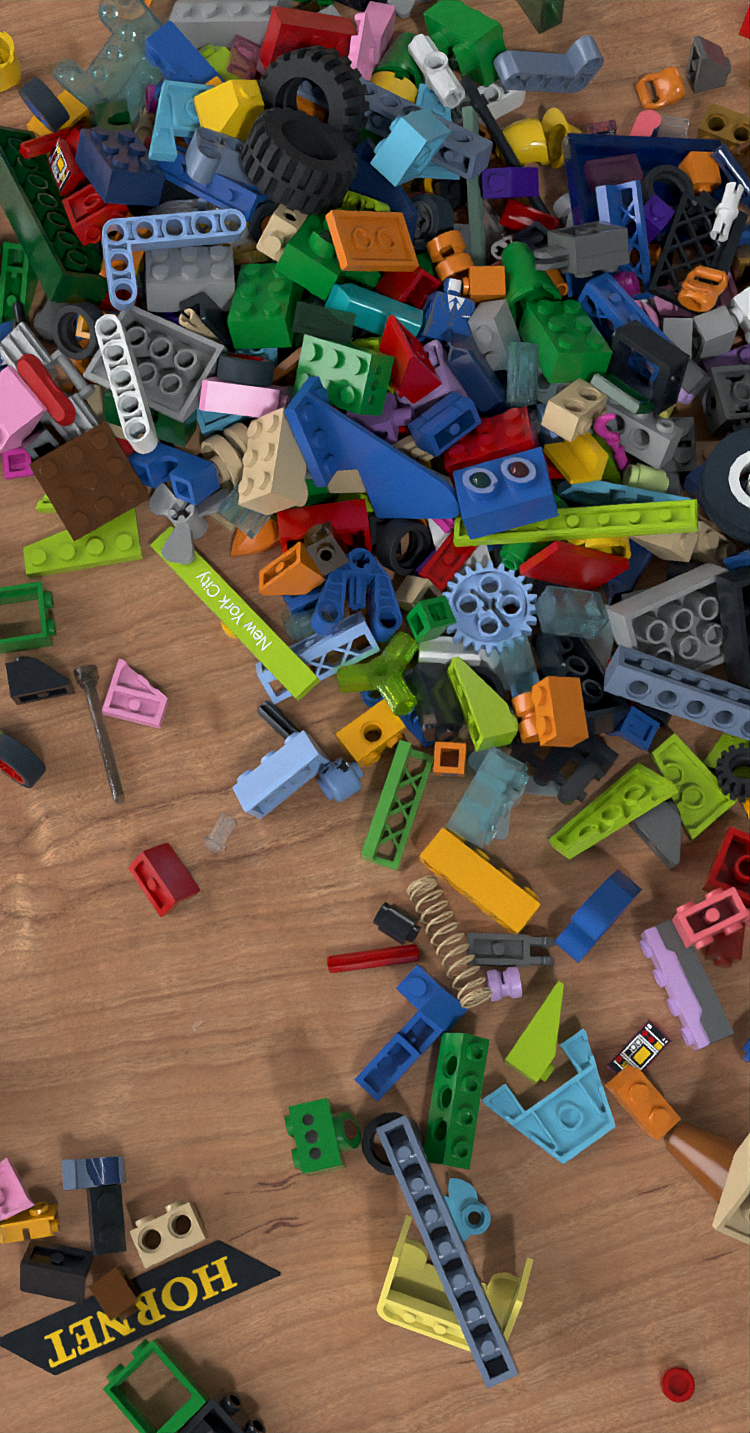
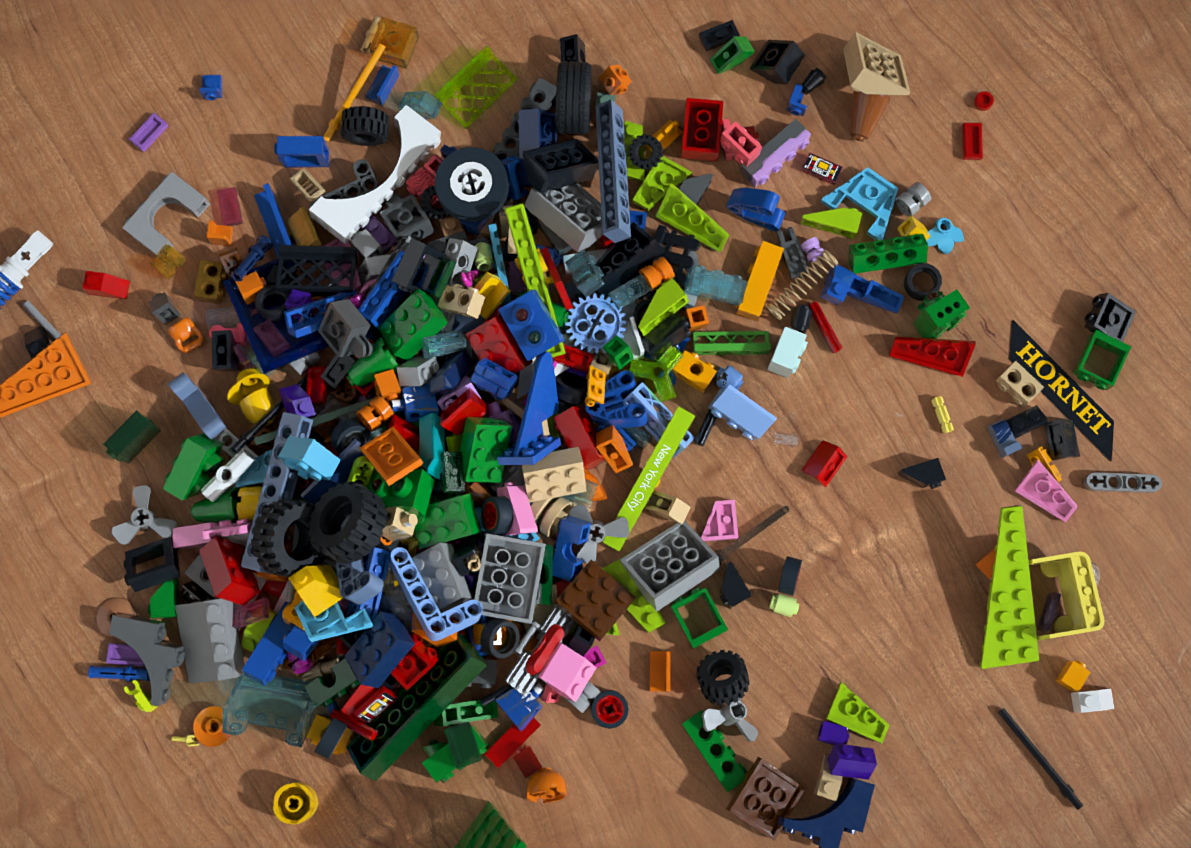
camera: 115 degrees left, 5 degrees up
(87, 1022) = (925, 474): none -> black slope
(101, 602) = (670, 564): none -> light grey slope
(116, 1294) = (1061, 400): reddish brown brick -> none
(132, 394) = (528, 595): white beam -> none
(169, 1090) = (942, 414): none -> light yellow axle
(184, 628) = (667, 507): none -> tan slope
(262, 1120) = (939, 354): none -> red wing
(326, 547) = (597, 426): dark brown brick -> none
(348, 876) = (785, 357): none -> light aqua brick
(390, 570) = (595, 386): none -> light orange hinge
(418, 1301) = (992, 221): light yellow windscreen -> none
(448, 1252) = (972, 227): sand blue brick -> none
(486, 1163) = (912, 226): none -> yellow panel
(541, 1191) = (913, 199): none -> light grey wheel
(559, 711) = (655, 255): orange brick -> none
(610, 1332) = (972, 141): none -> red tile
(628, 115) = (223, 354): none -> black slope
(643, 1102) = (850, 155): orange brick -> none
(701, 295) = (348, 256): orange piece -> none
(726, 211) = (282, 258): white pin -> none

